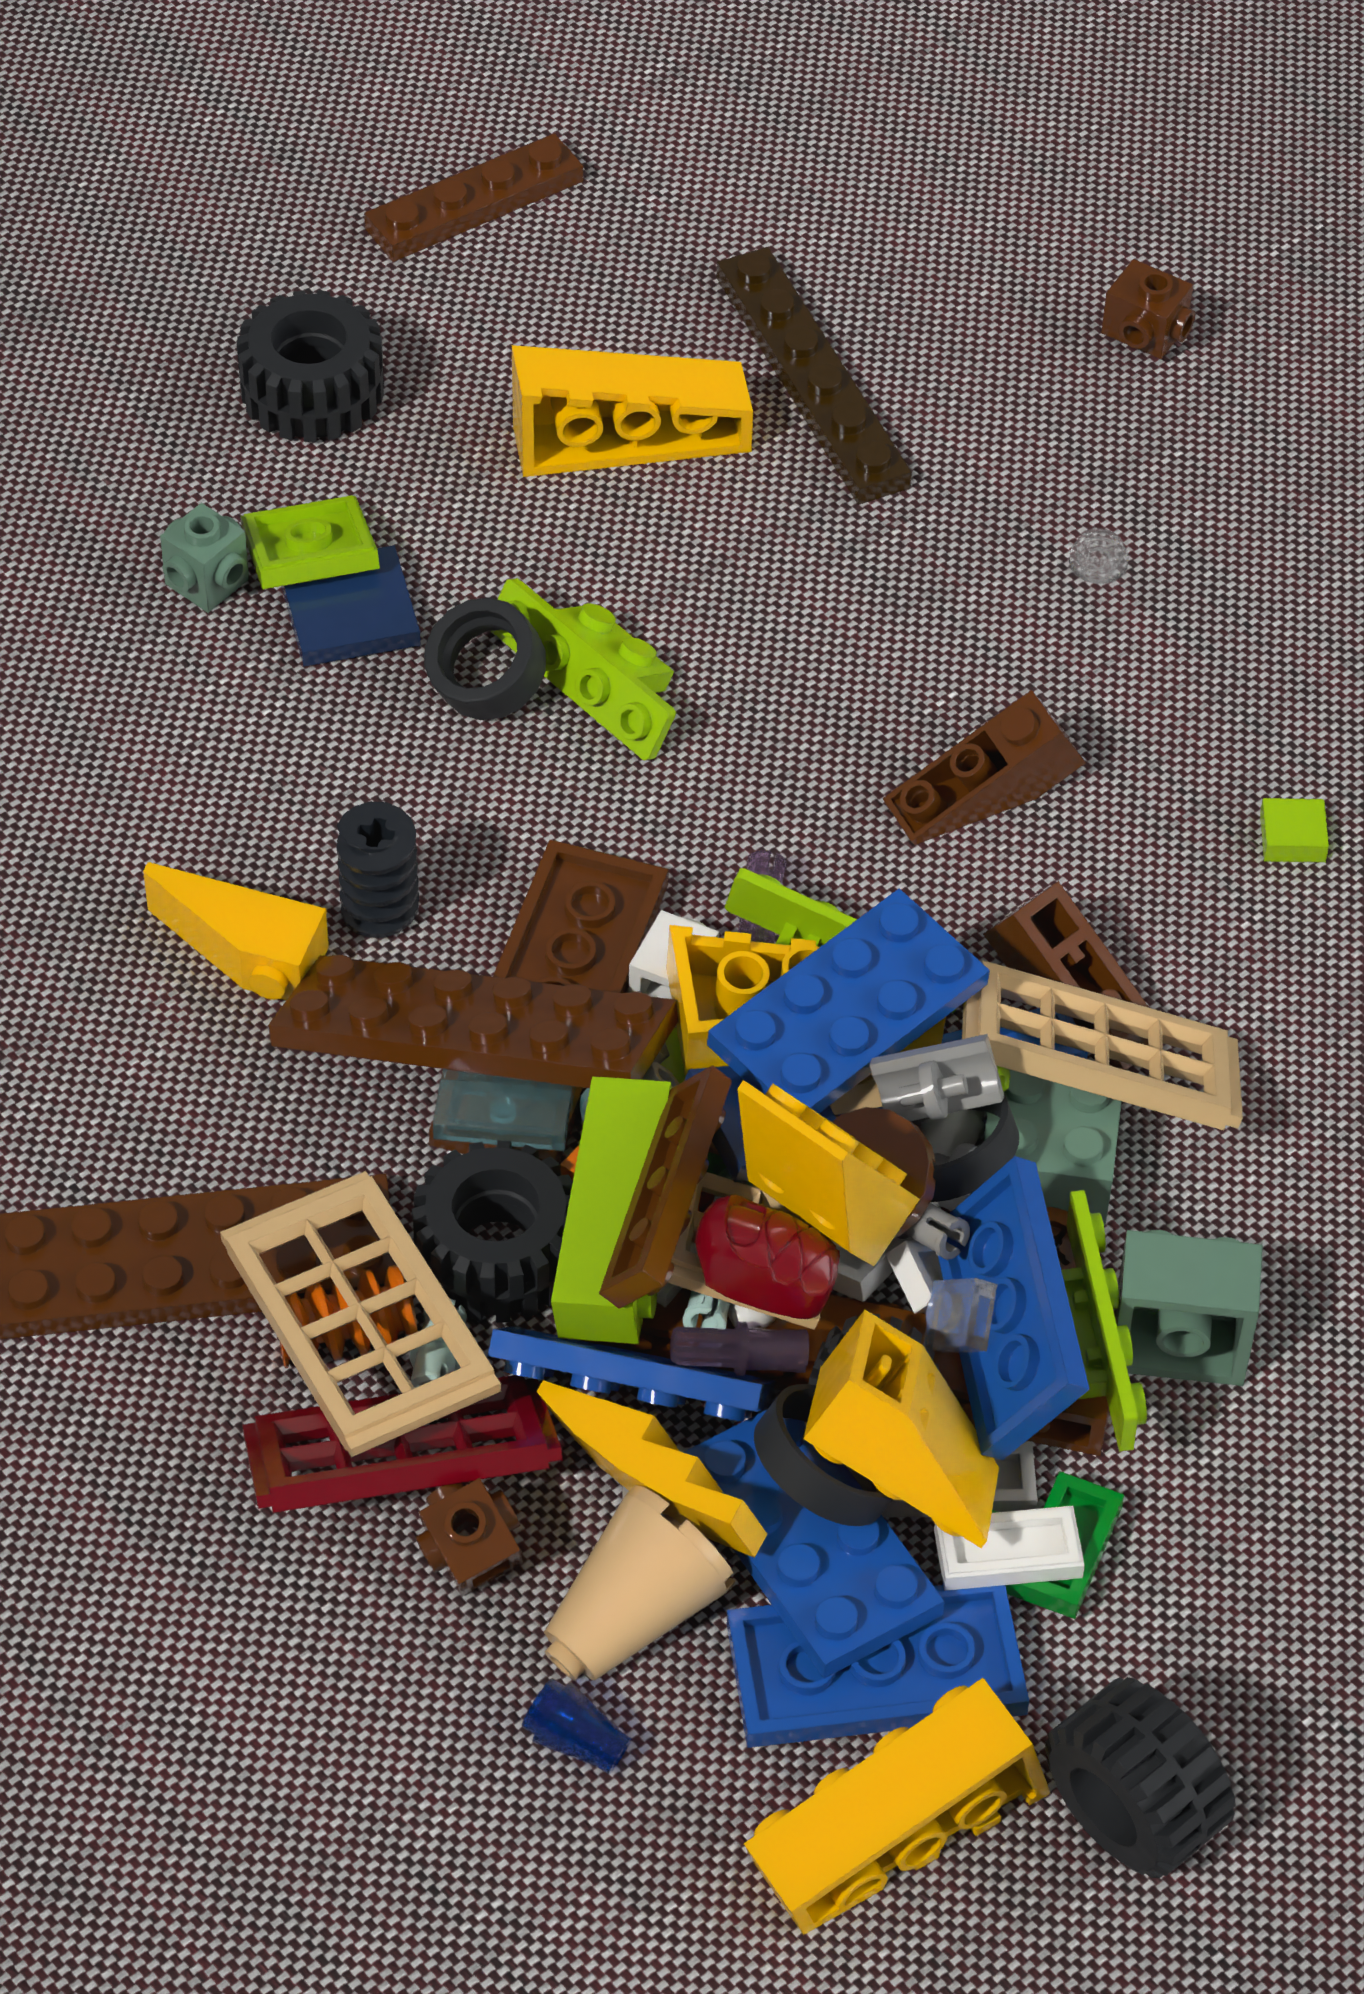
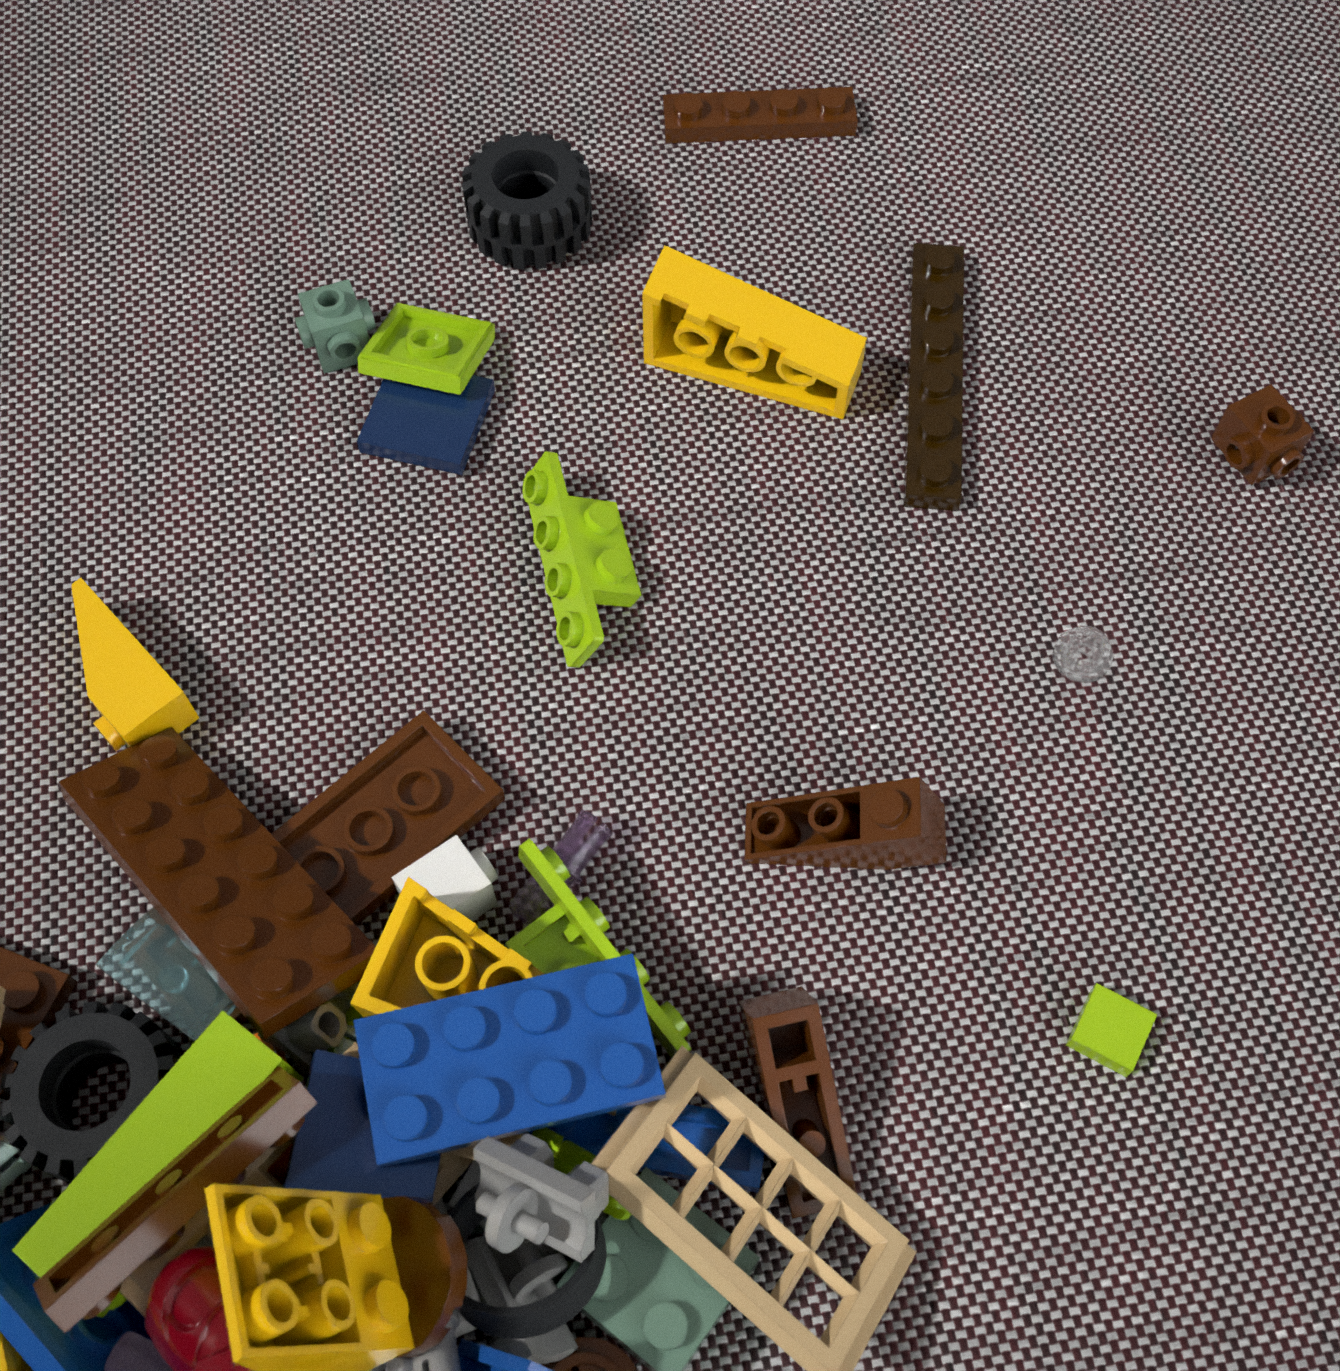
camera: 30 degrees right, 10 degrees up
(377, 869) = (247, 673): black piece -> none
(456, 630) = (455, 496): black tyre -> none

